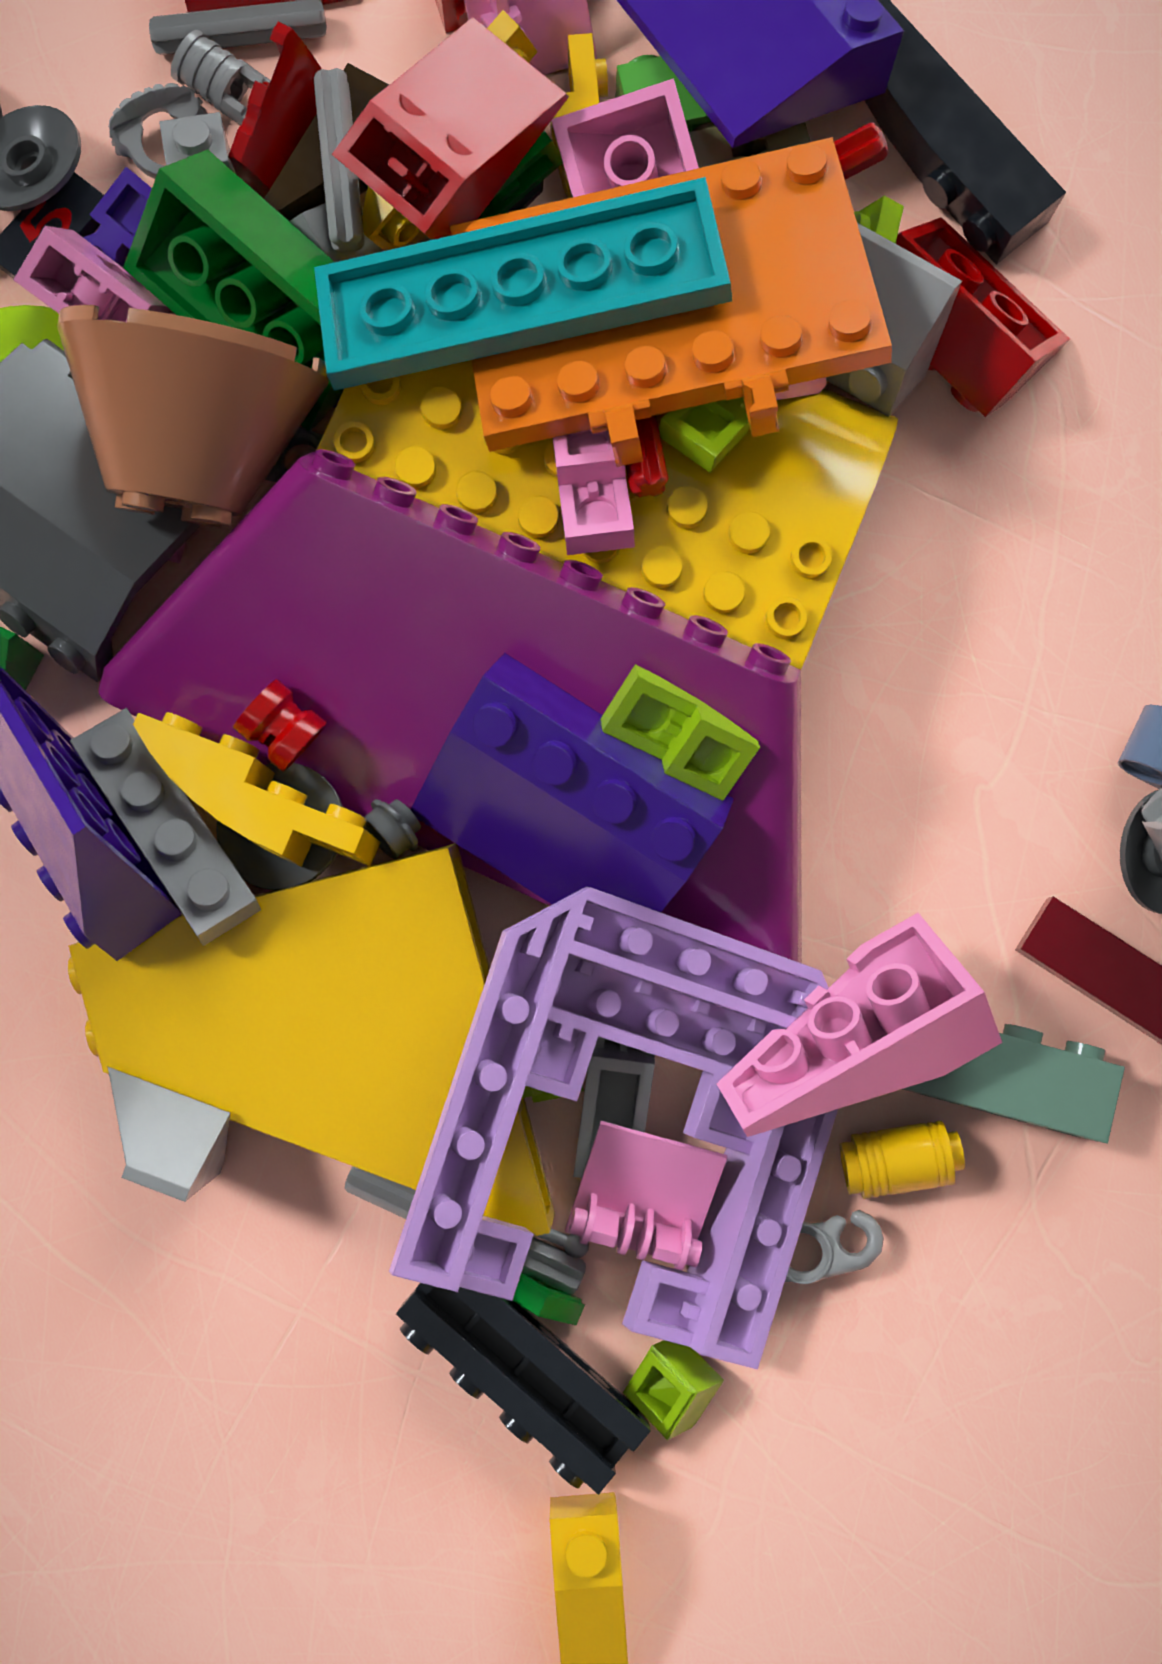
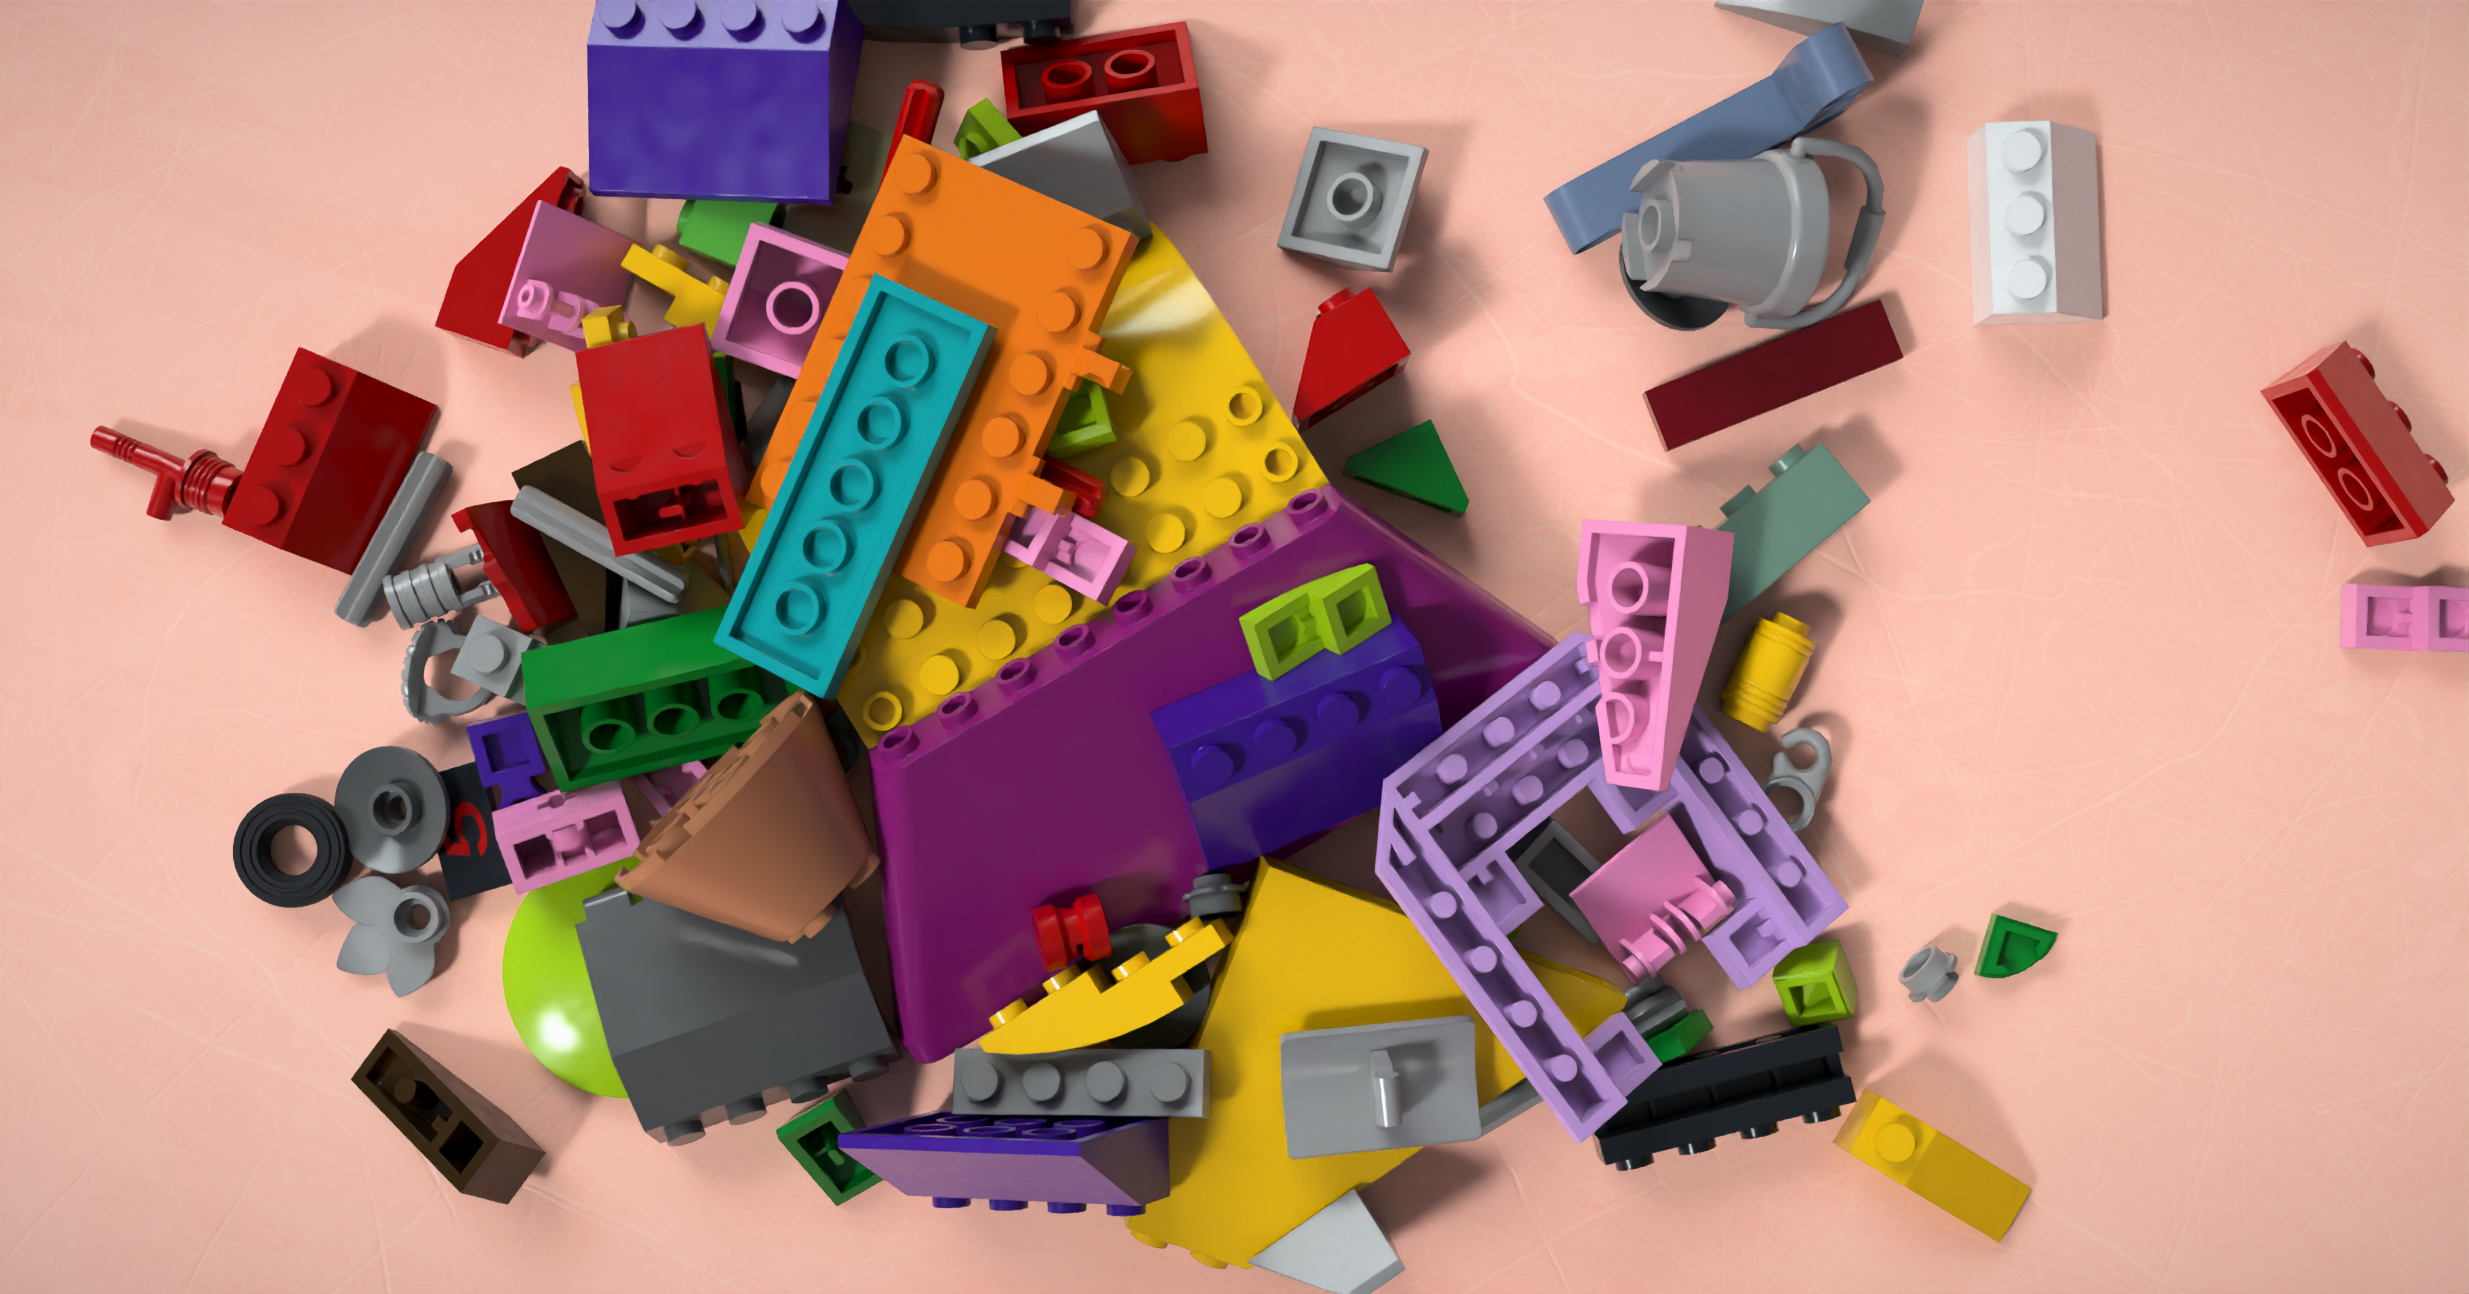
camera: 50 degrees left, 5 degrees up
(328, 1072) = (1379, 1087): none -> light grey shield
(749, 1480) = (1929, 974): none -> light grey plate
(821, 1535) = (2011, 947): none -> green tile
(853, 750) = (1413, 468): none -> green slope
(903, 630) = (1347, 356): none -> red slope
(1030, 557) = (1352, 200): none -> light grey slope

